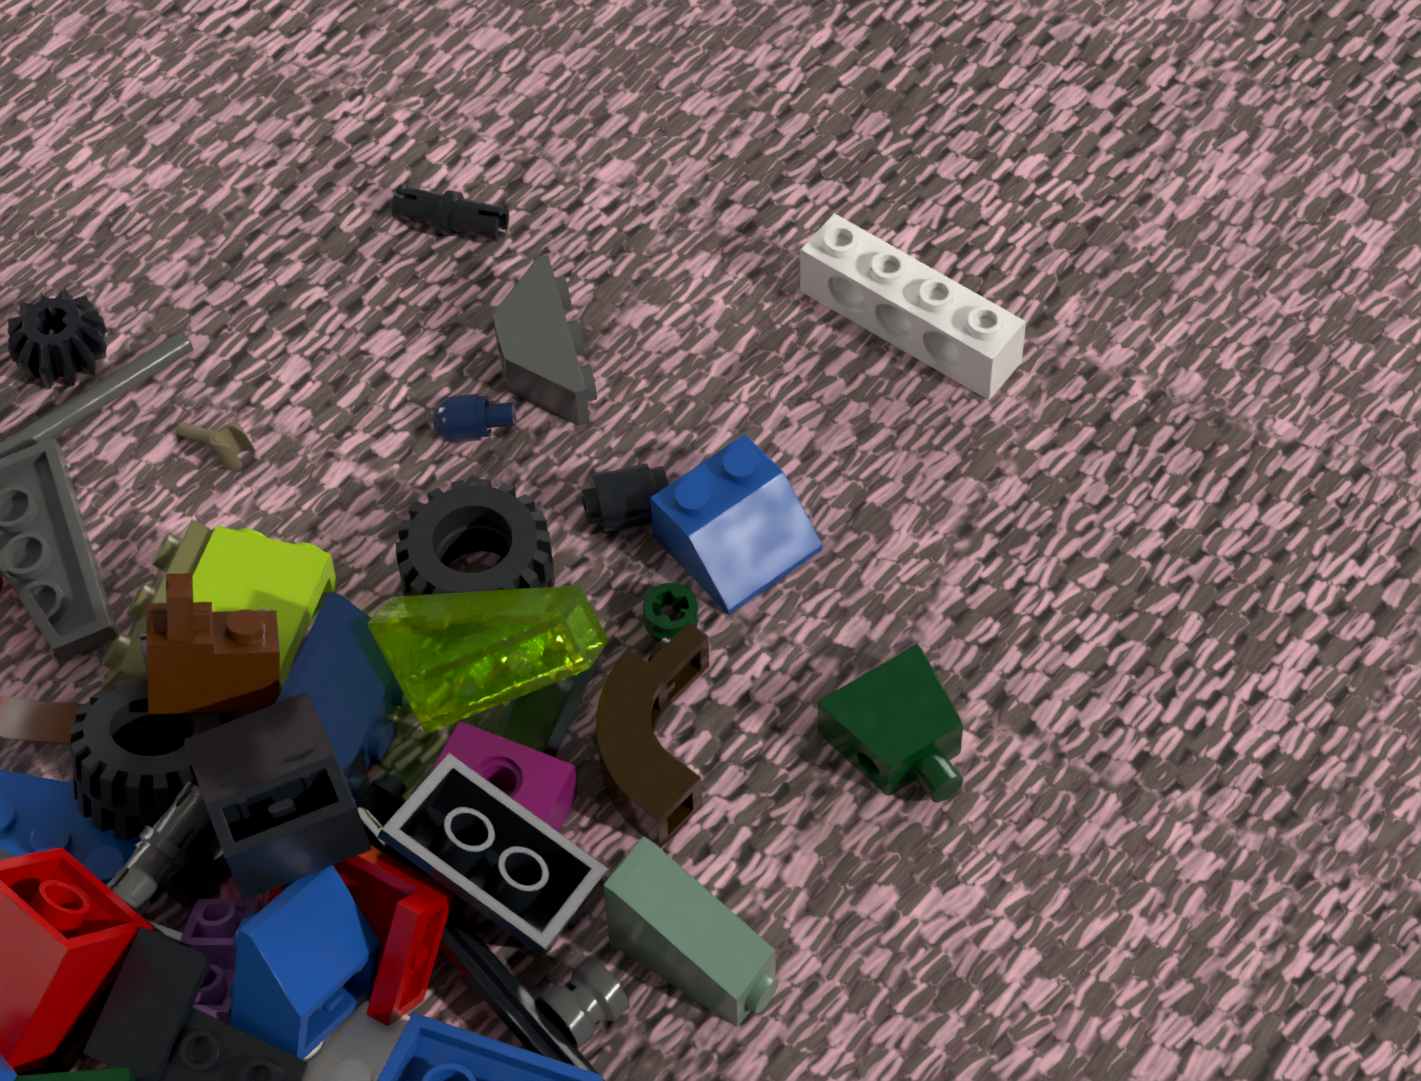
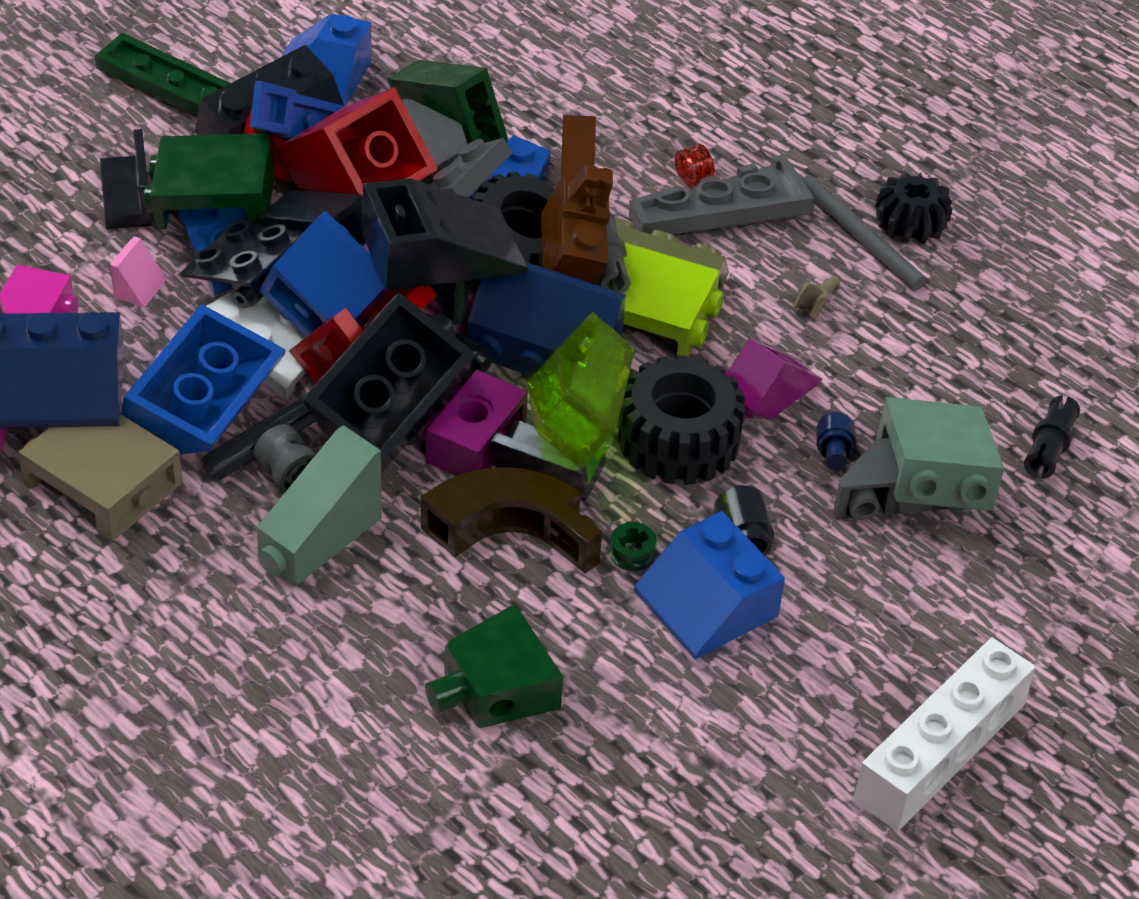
camera: 90 degrees right, 10 degrees down
(75, 810) = (472, 167): none -> dark grey slope
(387, 476) = (770, 379): none -> magenta slope
(515, 294) = (942, 453): none -> sand green panel

